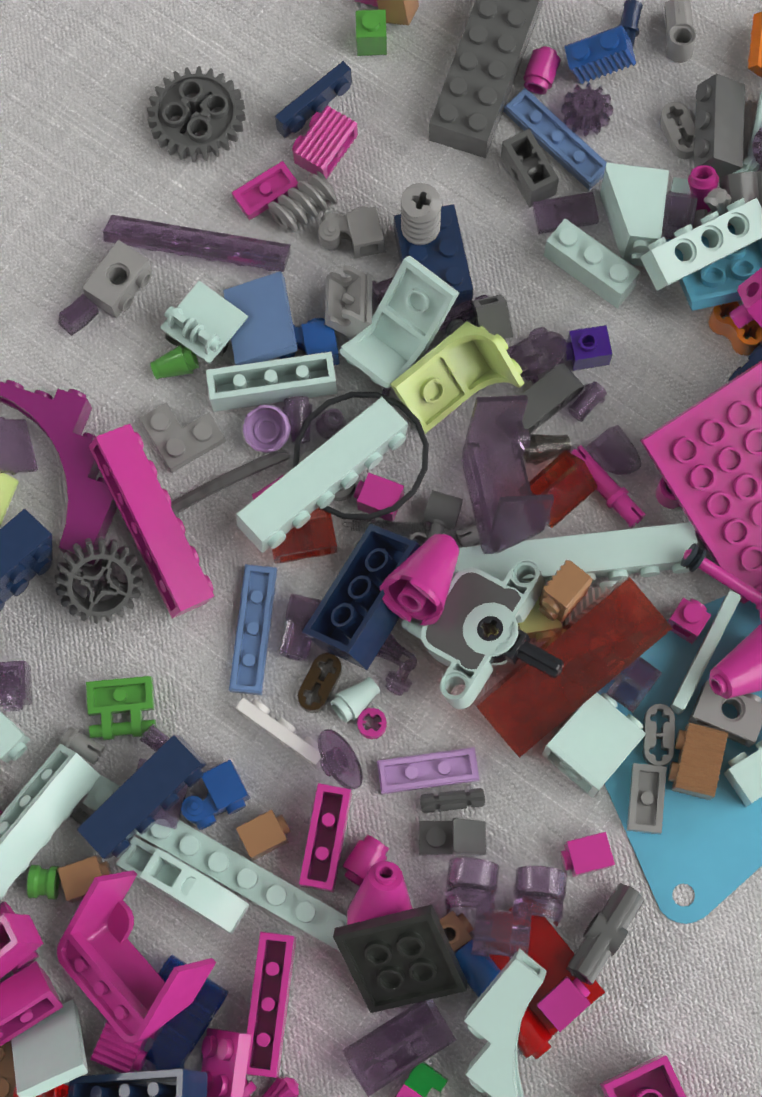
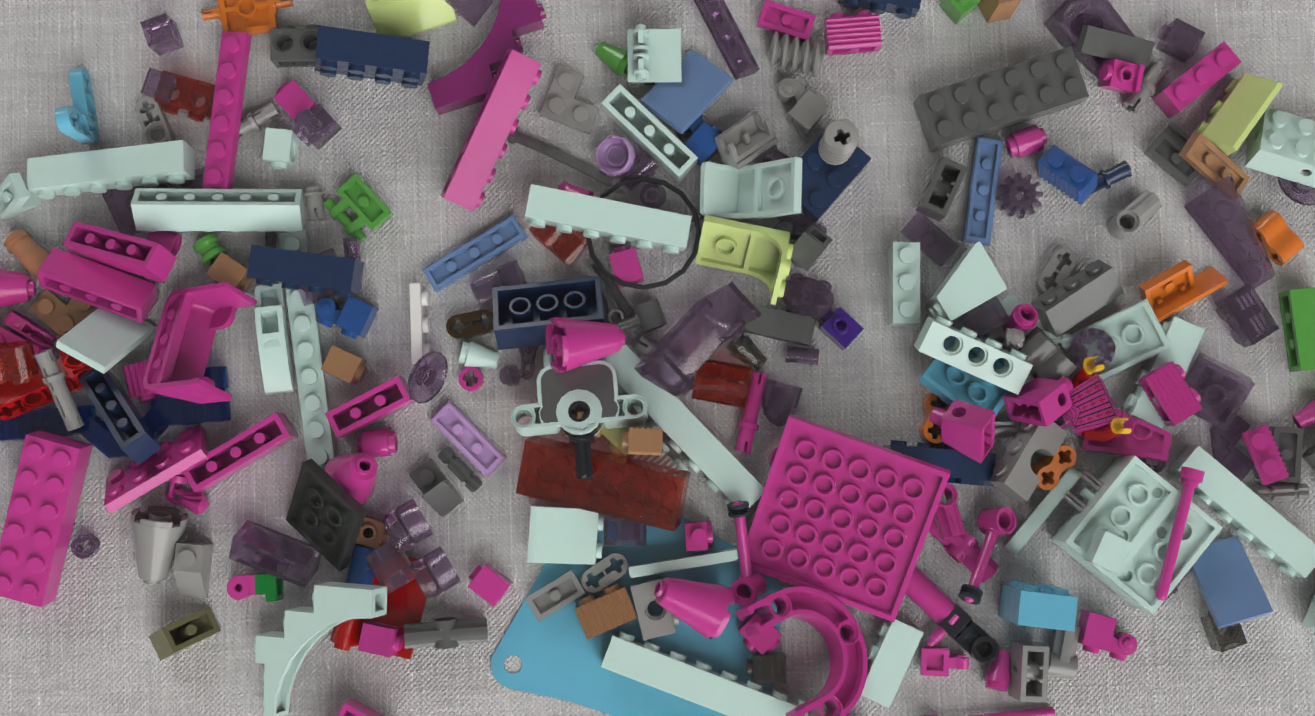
camera: 50 degrees right, 10 degrees up
(75, 569) = (425, 113): dark grey gear -> none

